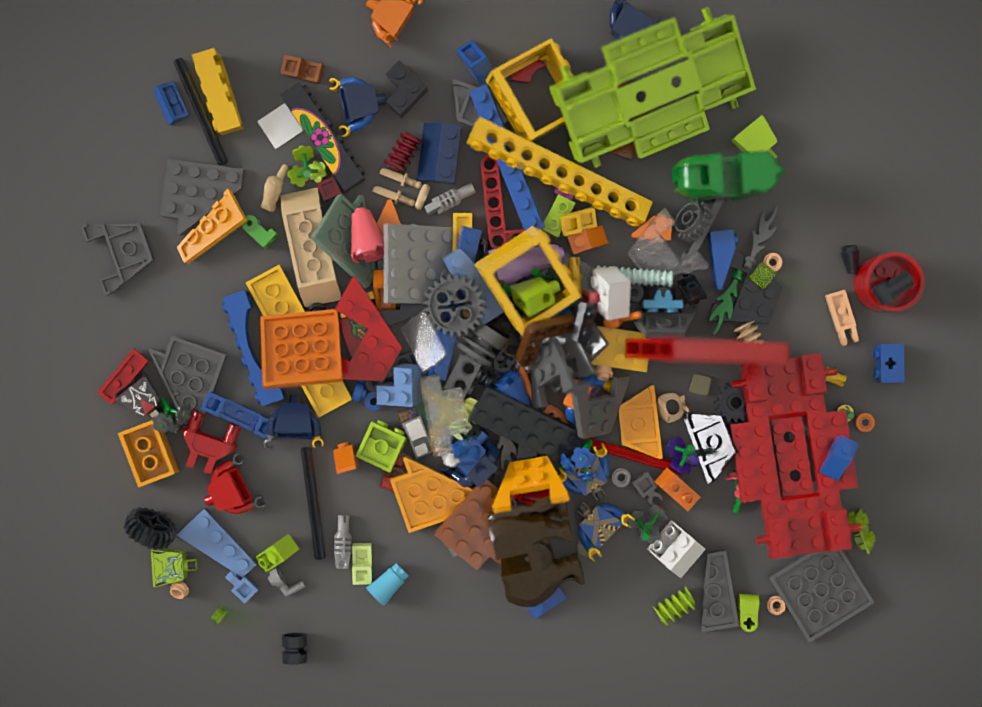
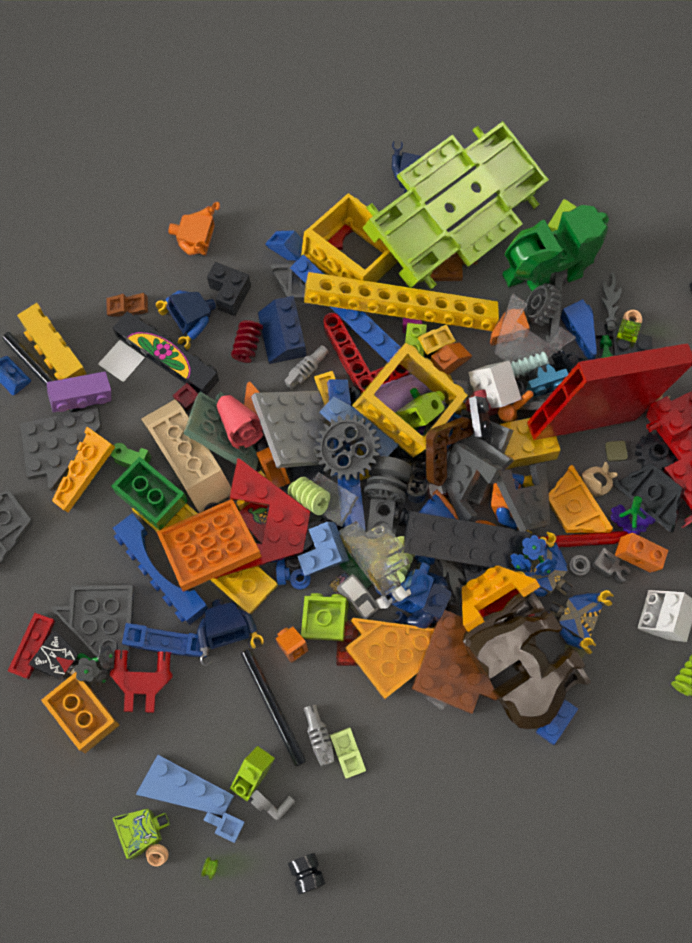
camera: 20 degrees left, 20 degrees down
(150, 528) = (104, 792): black gear -> none
(229, 151) = (79, 392): none -> medium lavender brick
(229, 490) = (179, 721): red torso -> none
(264, 279) = (149, 493): none -> green brick
(273, 189) = (131, 415): tan piece -> none
(313, 171) = (167, 384): lime plant -> none
(388, 584) = (383, 762): medium azure plant -> none
(397, 196) = (279, 374): tan piece -> none
(406, 333) = (309, 495): none -> yellowish green piece
(604, 372) = (519, 466): light nougat plate -> none
(648, 531) = (632, 608): dark grey plant -> none

